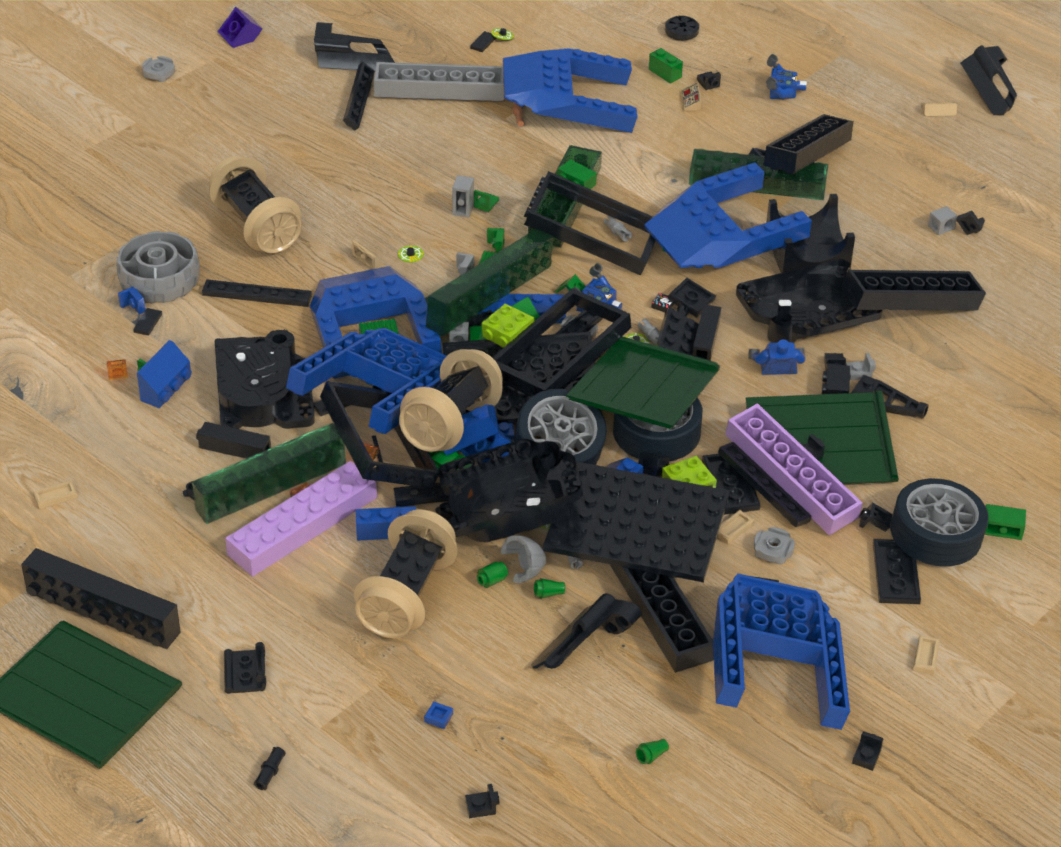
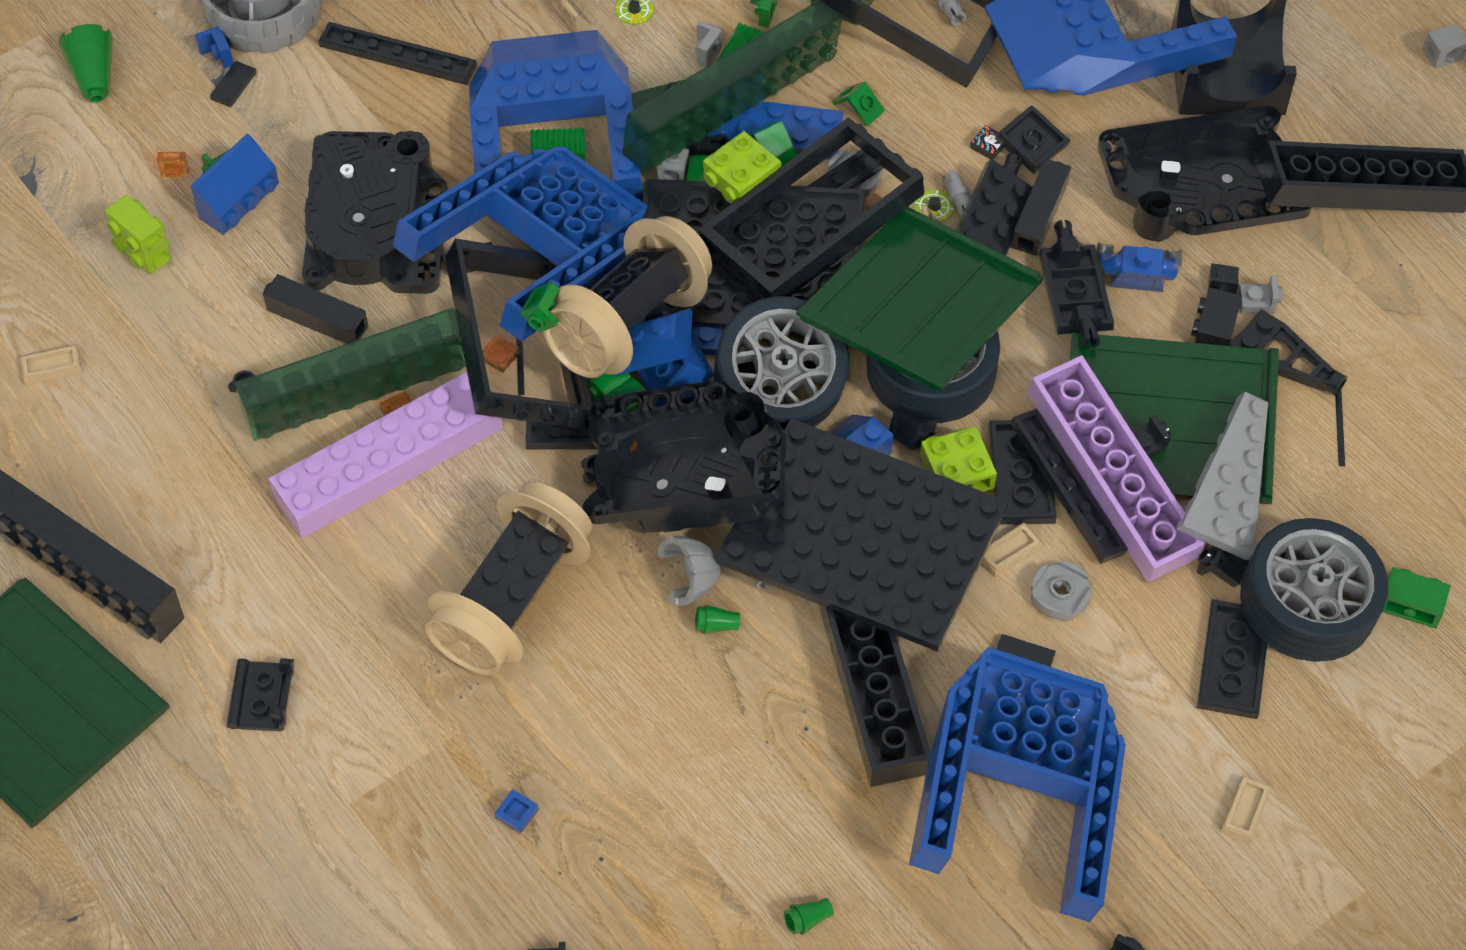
camera: 10 degrees right, 15 degrees up
(46, 313) = (89, 59): none -> green cone
(103, 409) = (138, 234): none -> lime brick
(269, 768) = (263, 864): black pin -> none
(374, 522) = (495, 471): blue slope -> none
(396, 406) = (537, 307): none -> green bracket
(492, 574) = (639, 585): green brick -> none
(600, 288) = (894, 118): torso -> none
(607, 611) = (758, 688): black panel -> none
(741, 373) = (1075, 287): none -> black plate
(869, 467) = (1229, 486): none -> light grey wing
(931, 437) = (1340, 431): none -> black piece

